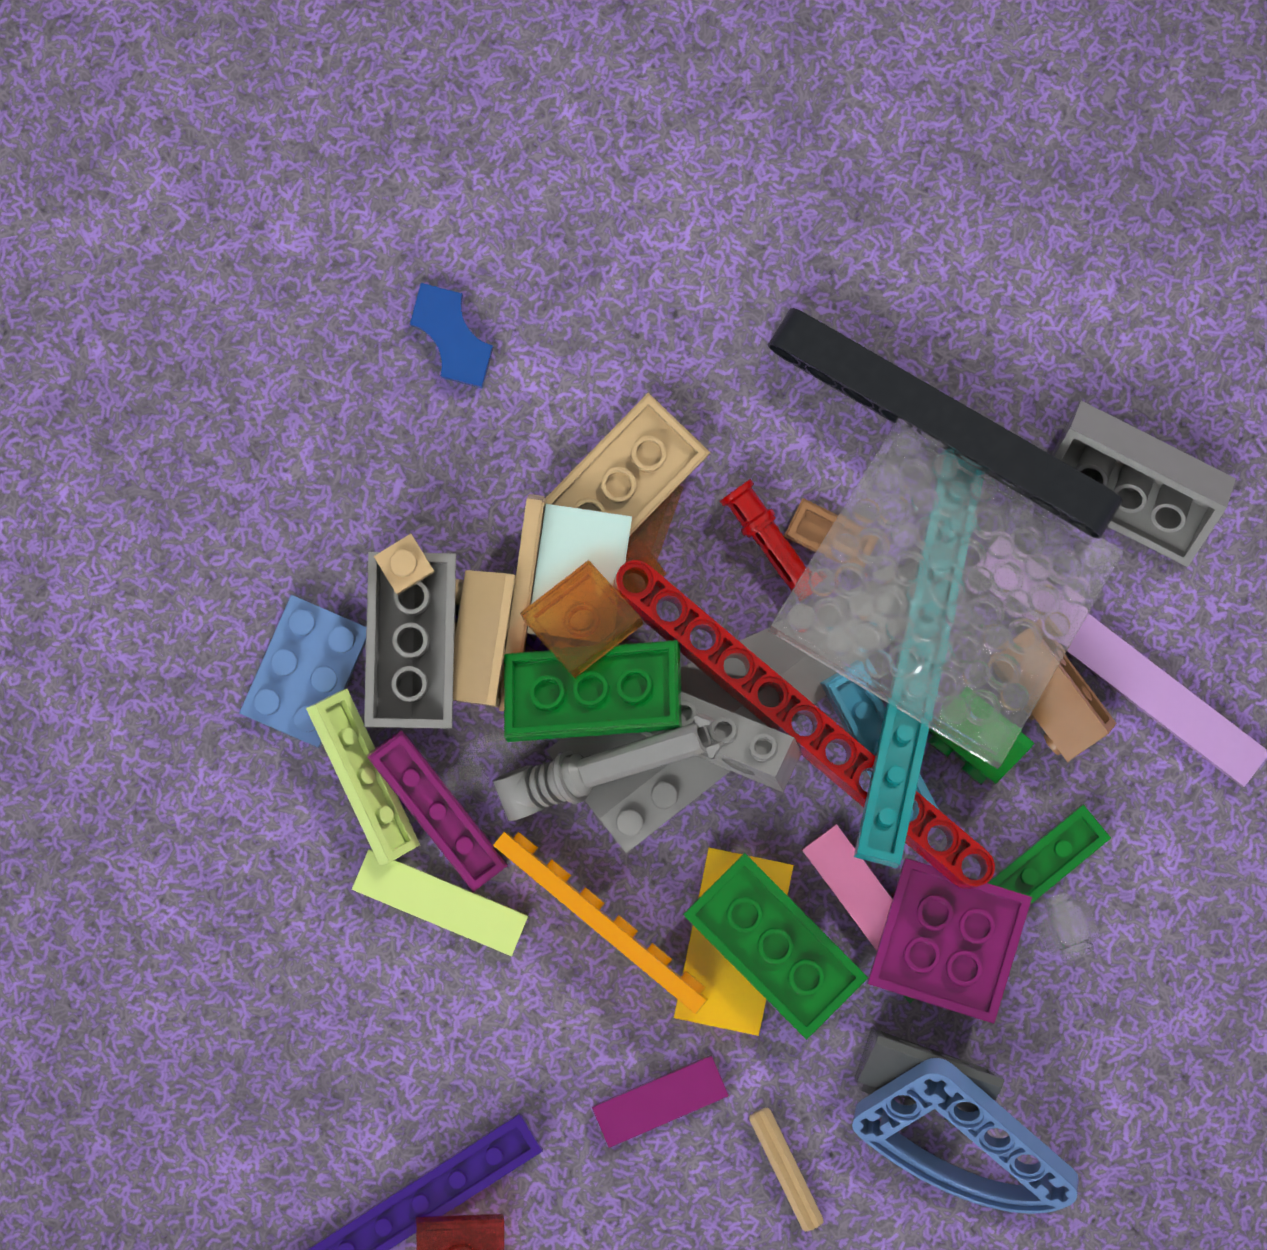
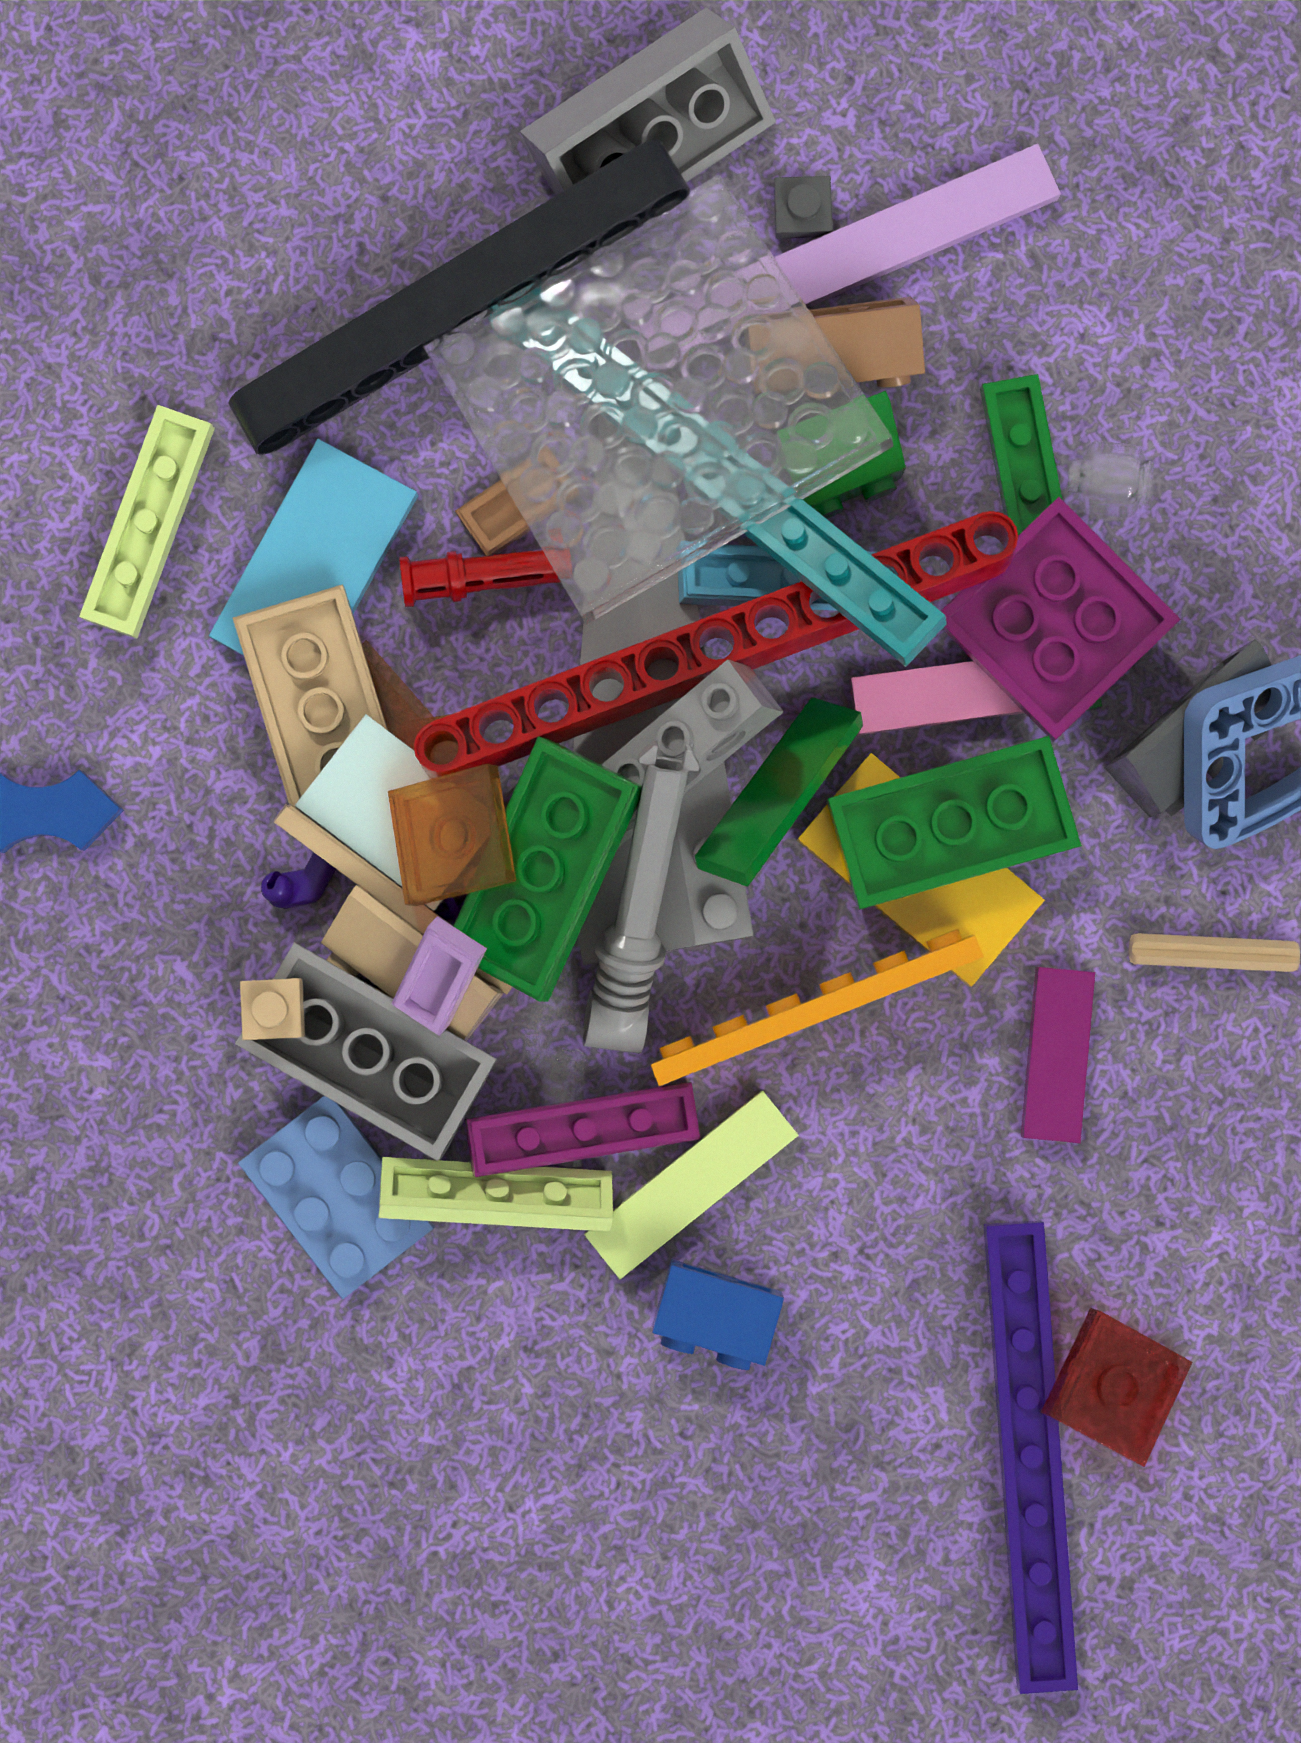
camera: 65 degrees left, 0 degrees up
(363, 966) = (717, 1314): none -> blue brick
(484, 661) = (438, 975): none -> lavender tile
(495, 533) = (298, 886): none -> dark purple arm
(682, 298) = (147, 521): none -> yellowish green plate
(731, 818) = (778, 791): none -> green tile
(734, 419) = (323, 536): none -> medium azure tile
(1138, 617) = (802, 207): none -> dark grey plate

